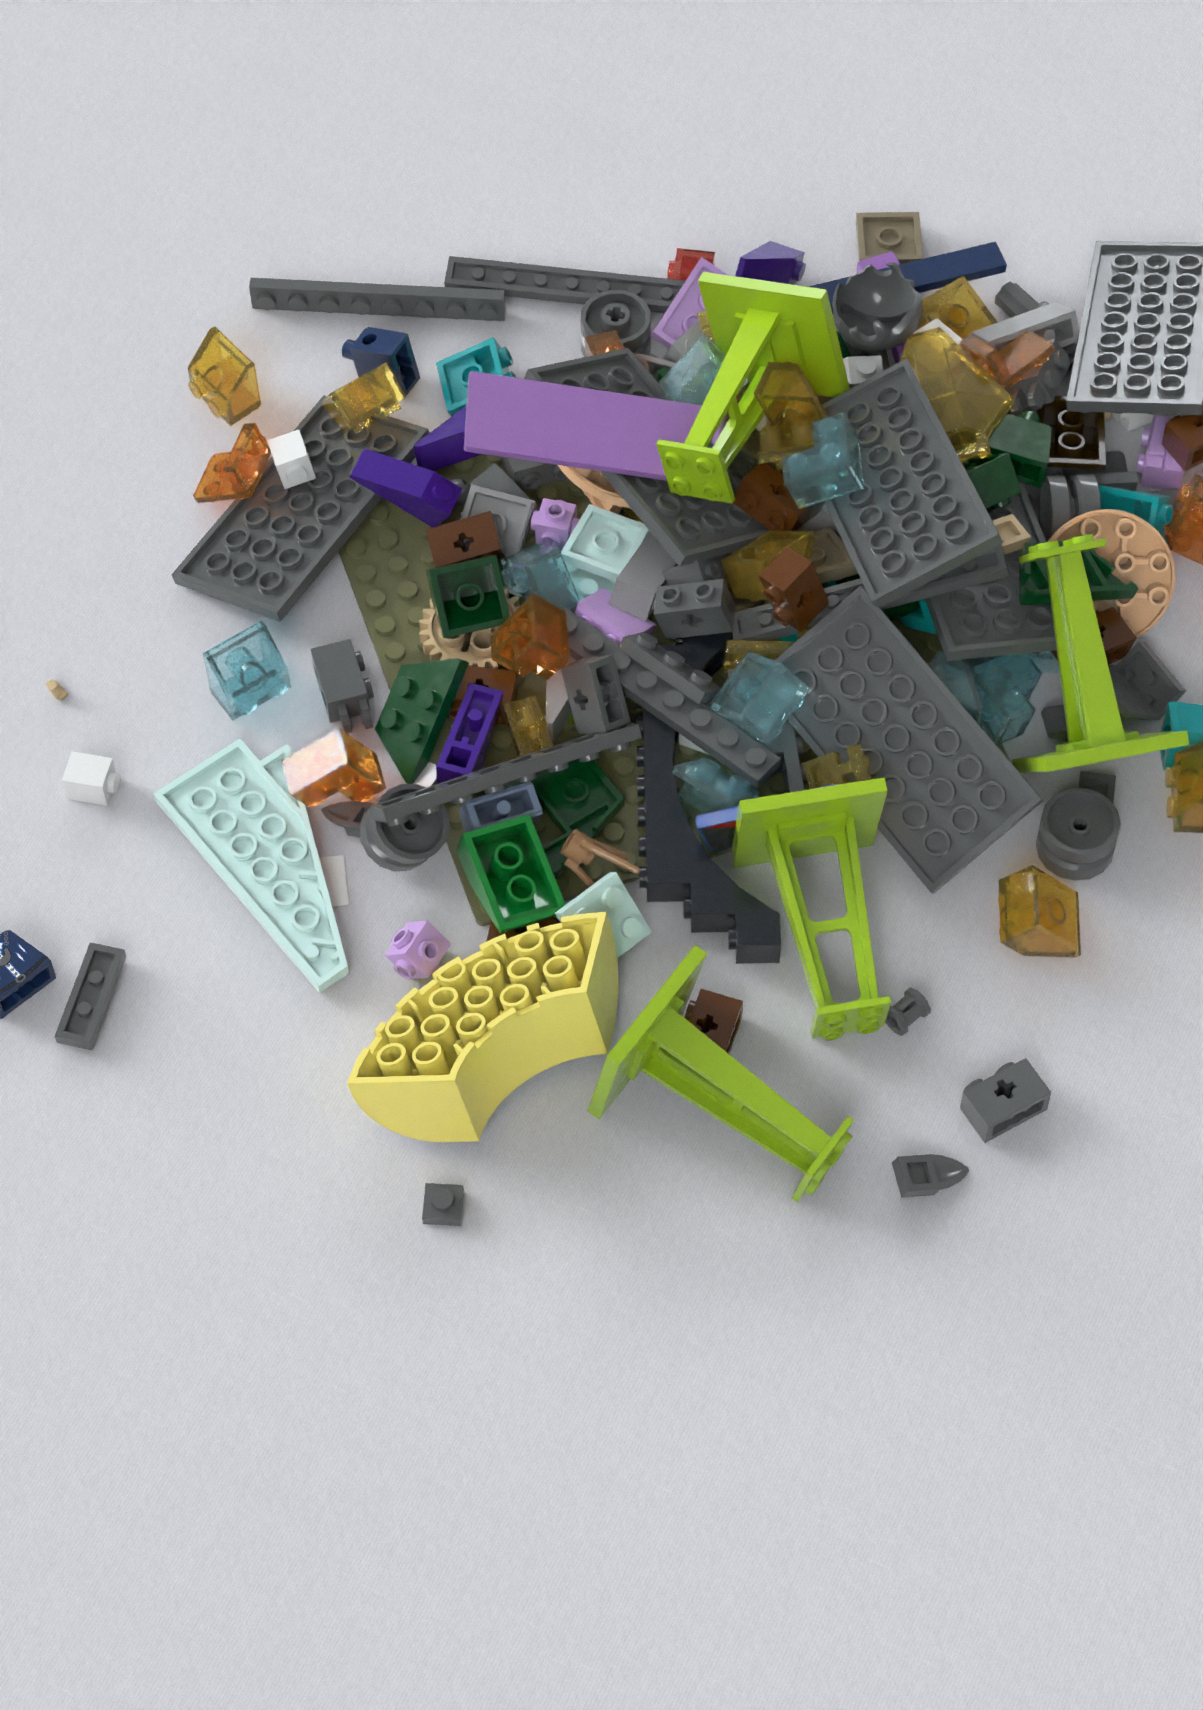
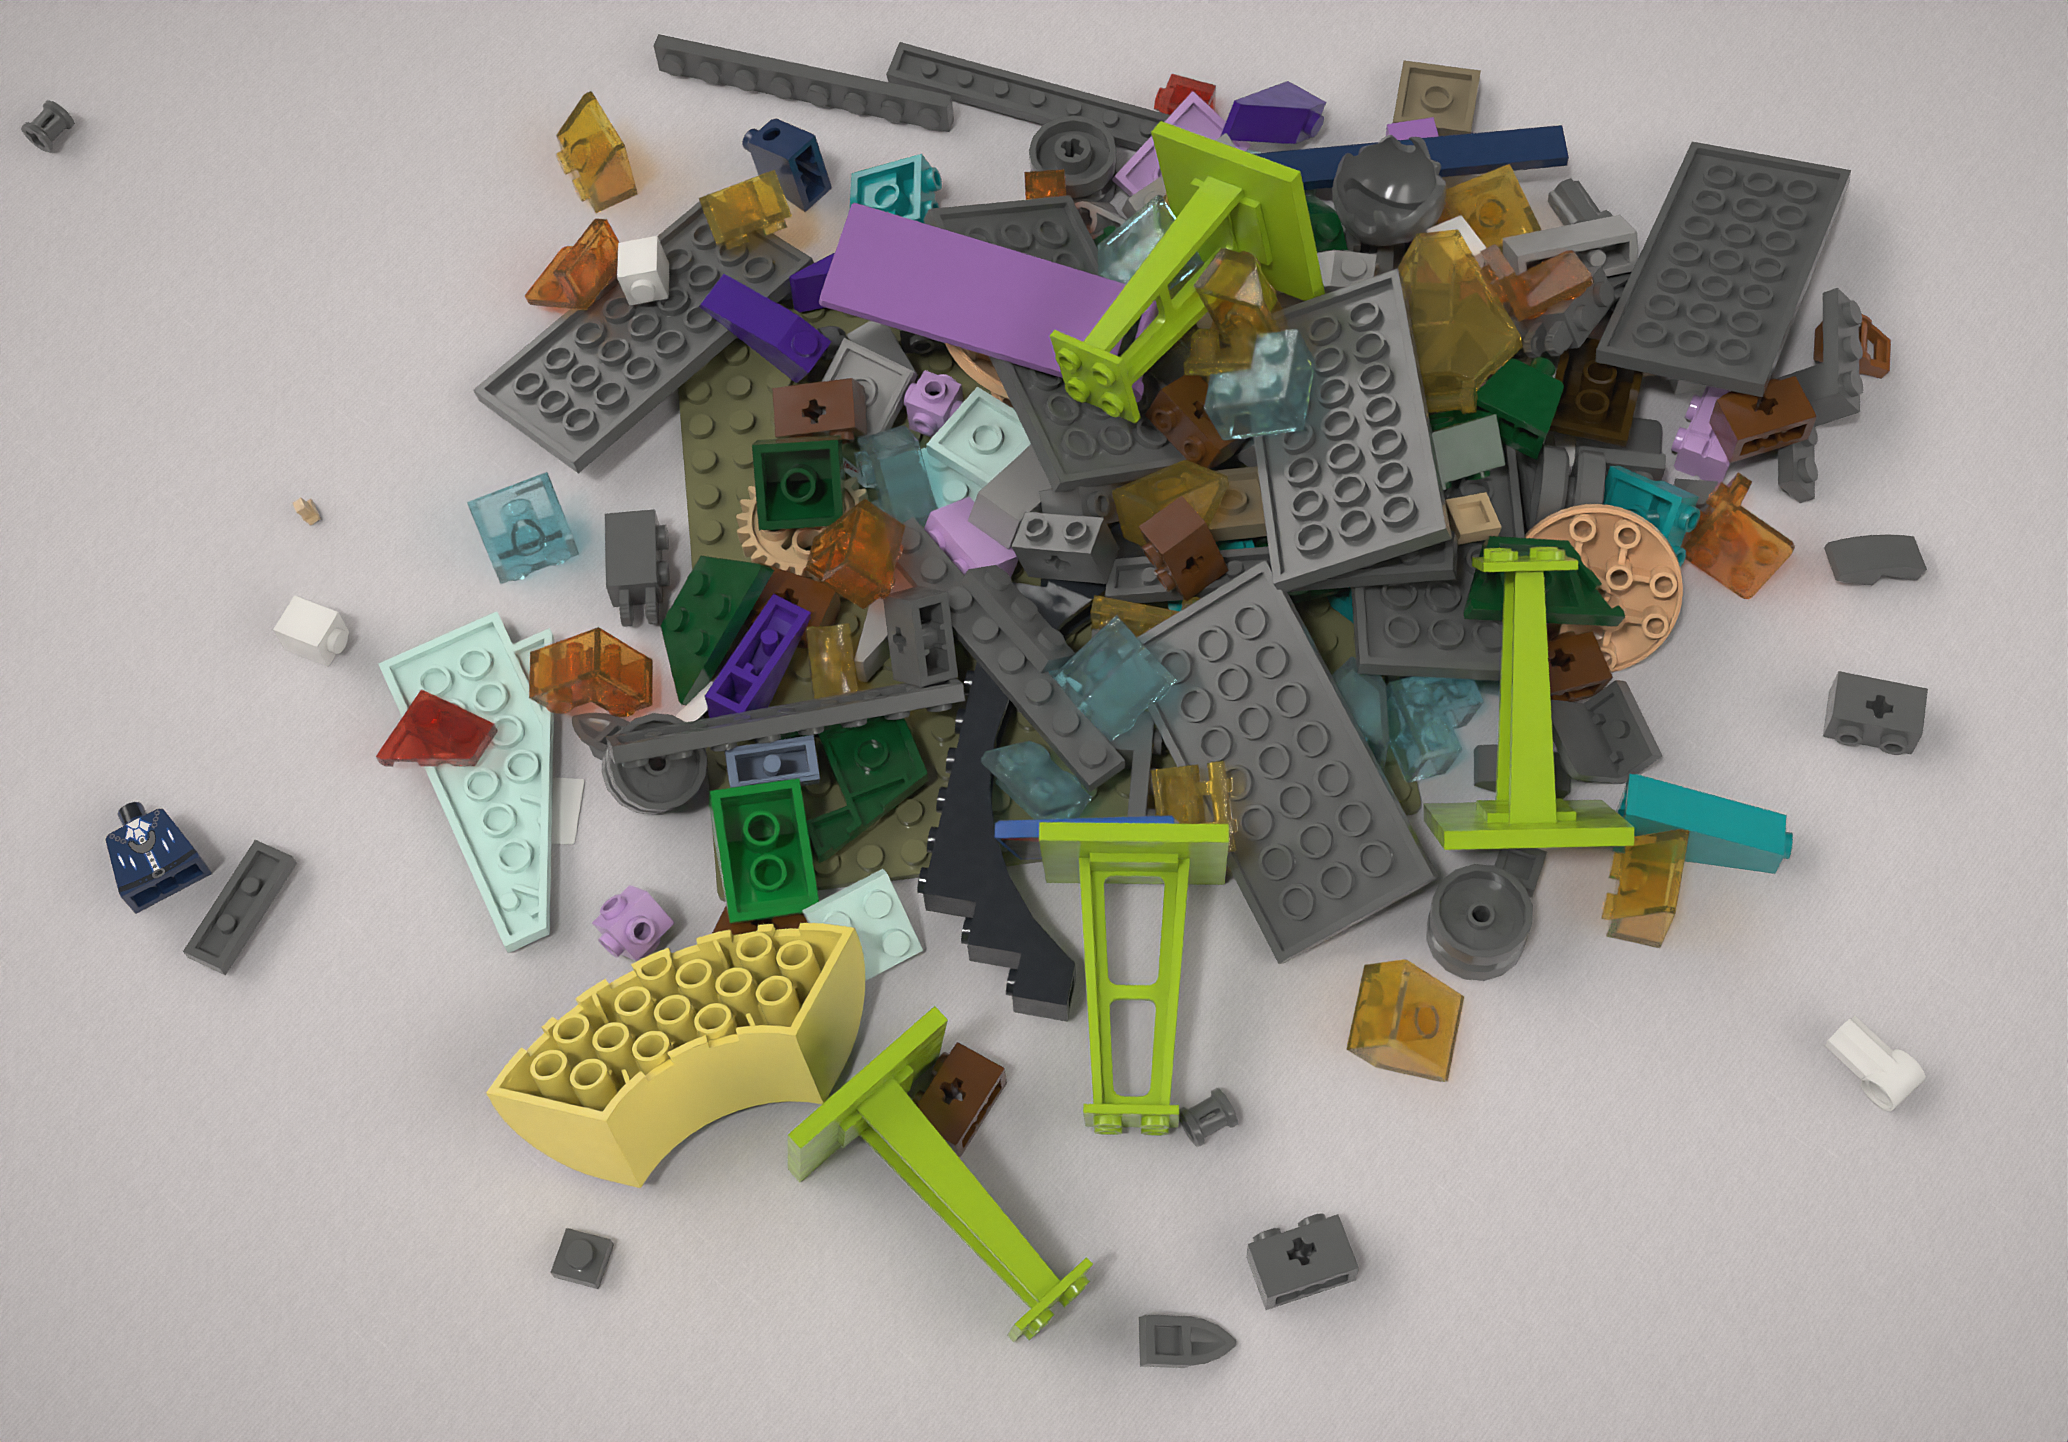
camera: 15 degrees right, 5 degrees up
(219, 837) = (437, 734): none -> clear red wing
(582, 849) = (856, 832): medium nougat plant -> none

